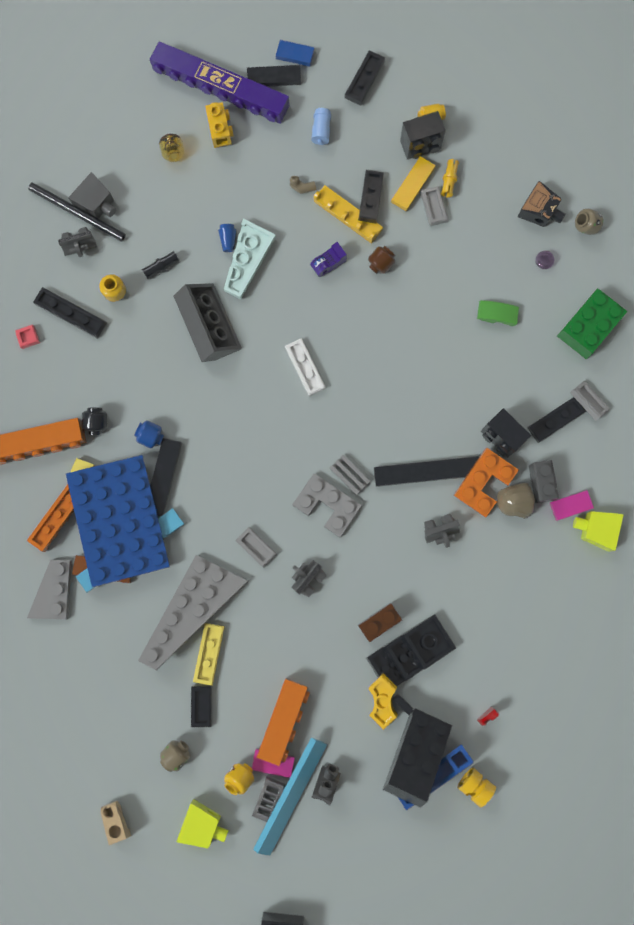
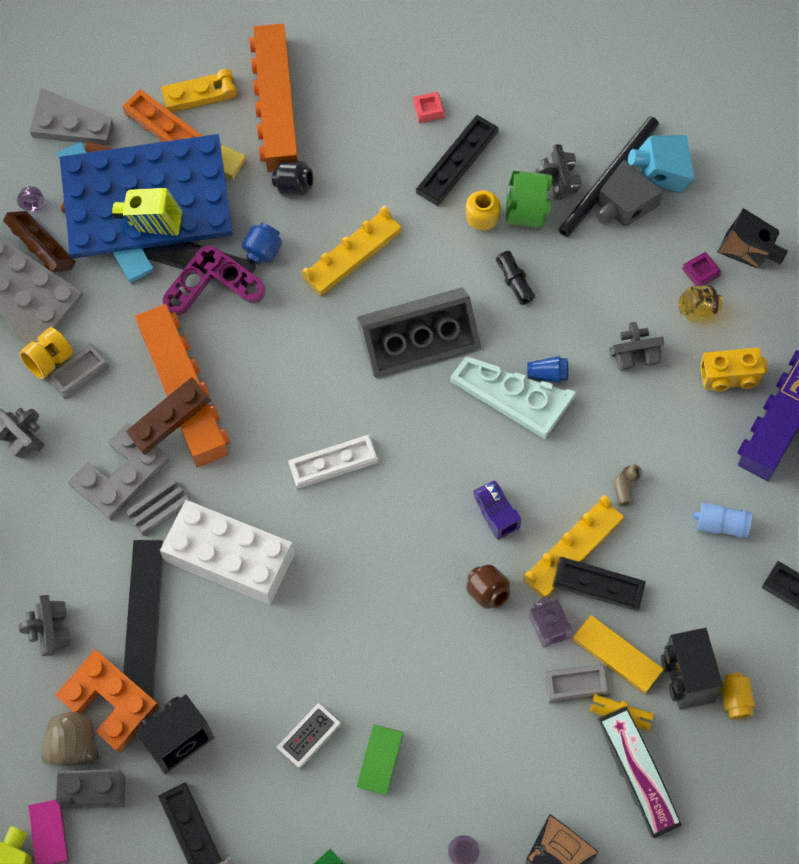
camera: 95 degrees right, 15 degrees down
(22, 501) = (199, 91): none -> yellow plate
(66, 172) = (665, 161): none -> medium azure torso
(102, 257) = (527, 199): none -> bright green brick
(123, 606) = (30, 199): none -> clear purple plate
(124, 117) = (752, 241): none -> black torso
(141, 501) = (150, 211): none -> neon yellow torso
(144, 150) = (701, 269): none -> magenta tile
(148, 374) = (352, 252): none -> yellow hinge
(158, 593) = (39, 241): none -> reddish brown plate
(173, 462) = (215, 271): none -> magenta beam
(203, 184) = (624, 352): none -> dark grey hips
(248, 568) = (46, 352): none -> yellow wheel
(262, 472) = (174, 368): none -> orange brick
(290, 473) = (168, 415): none -> reddish brown plate
(378, 422) = (227, 552): none -> white brick
(398, 228) = (549, 631): none -> clear purple brick
(485, 164) = (639, 772): none -> slope
(488, 357) = (308, 736): none -> tile

